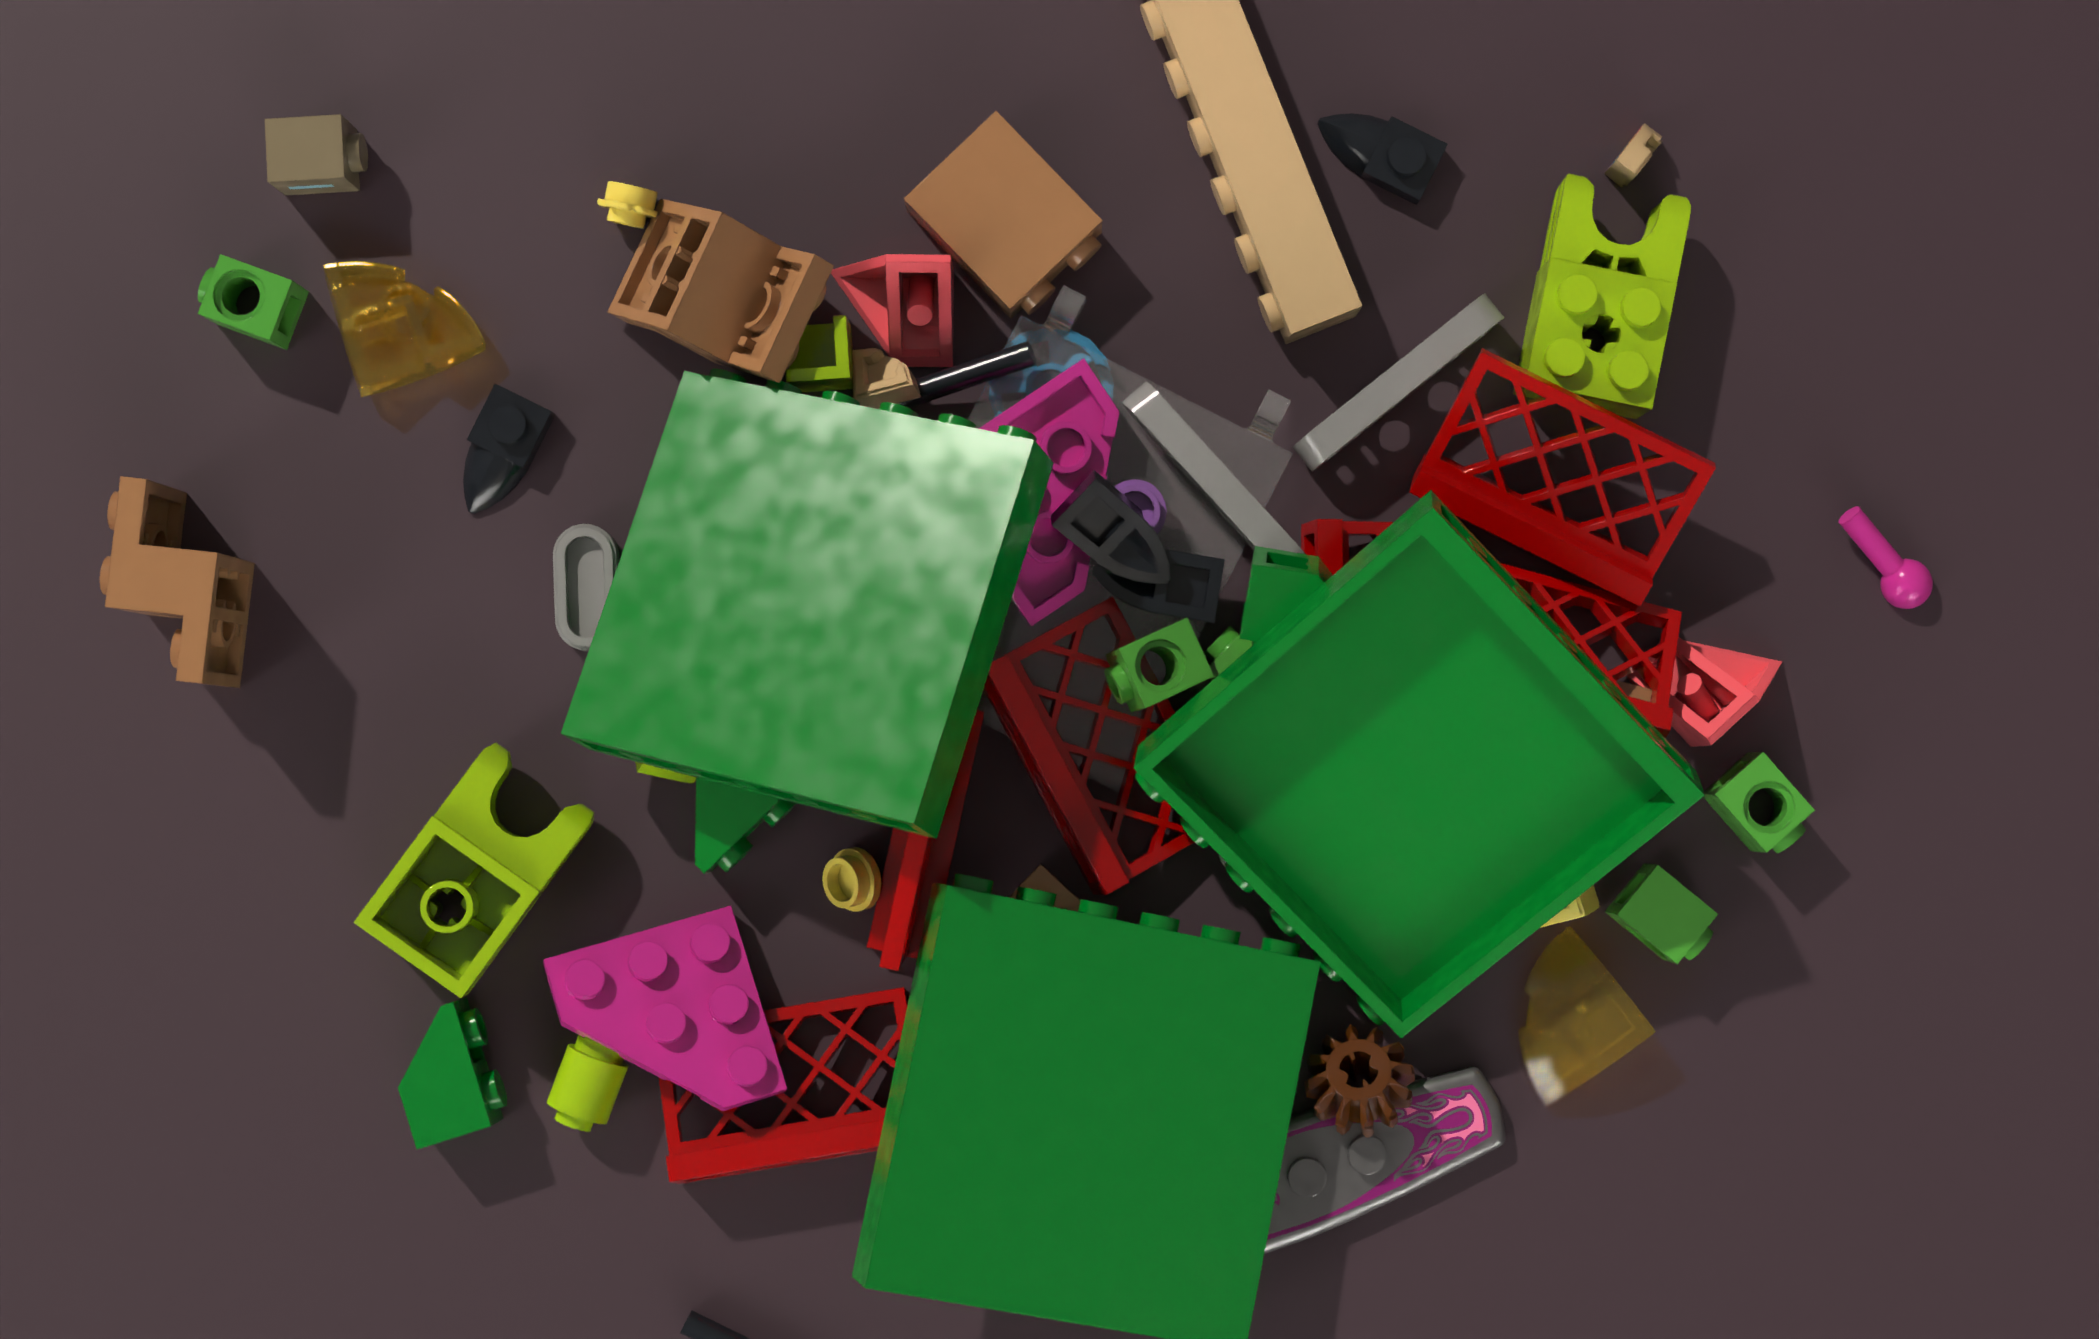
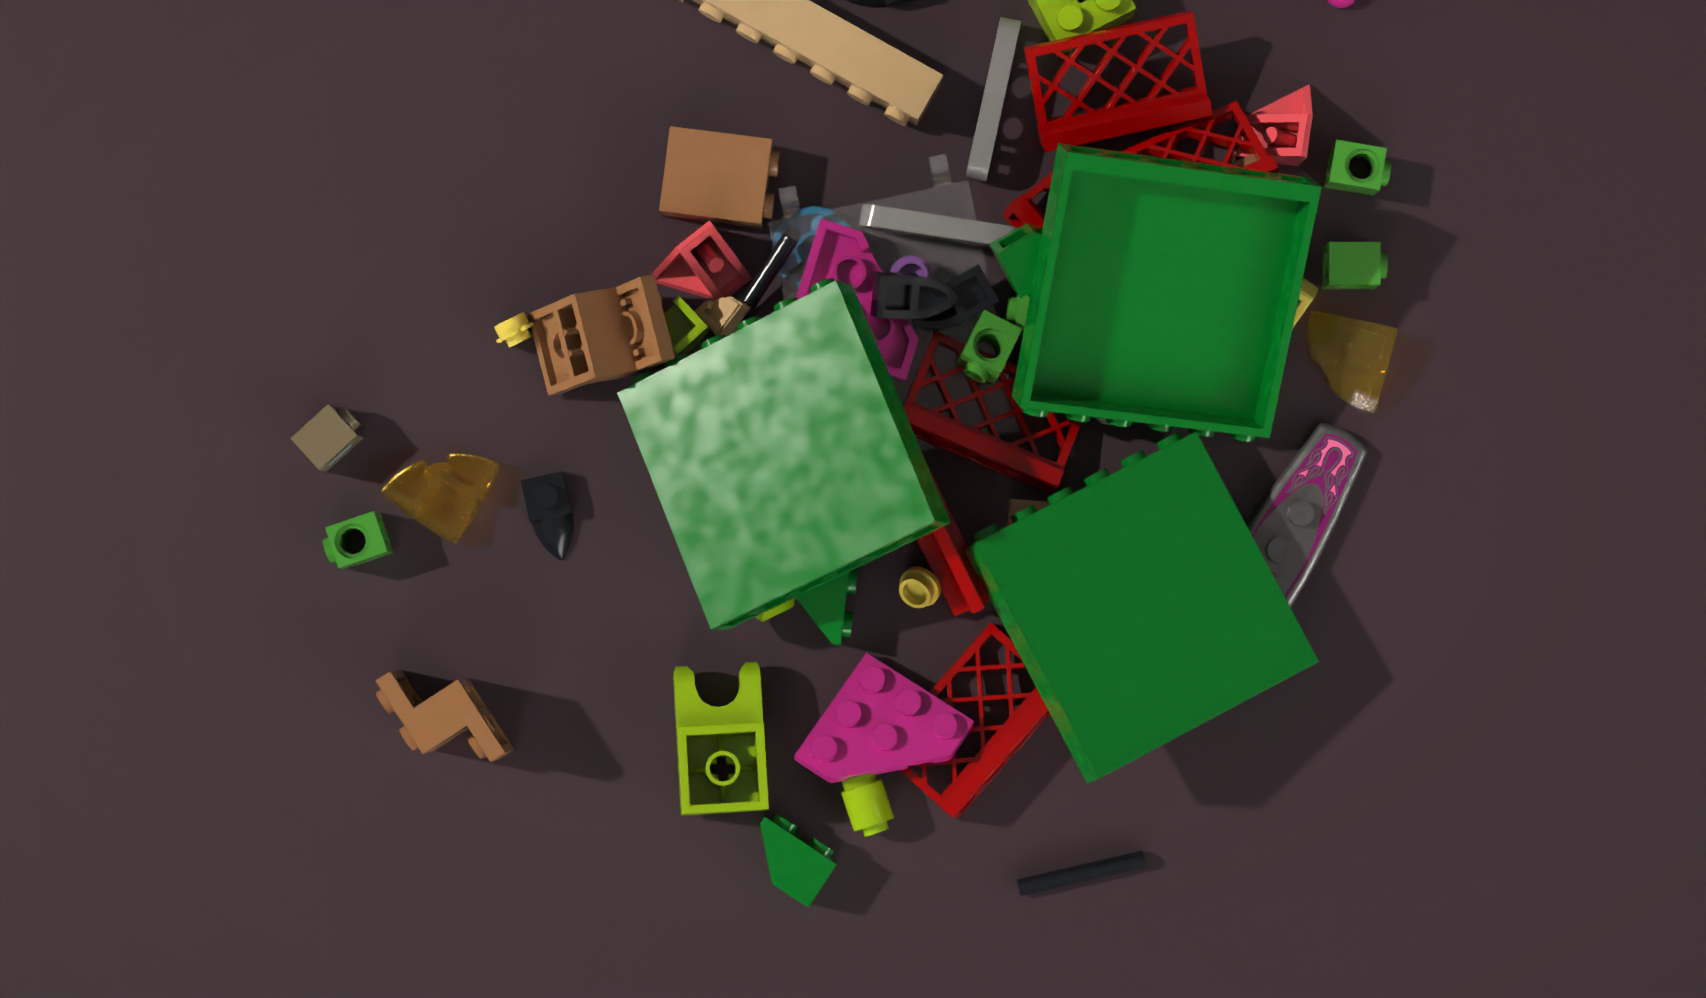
camera: 40 degrees left, 0 degrees up
(582, 575) = (653, 548): light grey tile -> none
(1355, 1058) = (1255, 467): reddish brown gear -> none

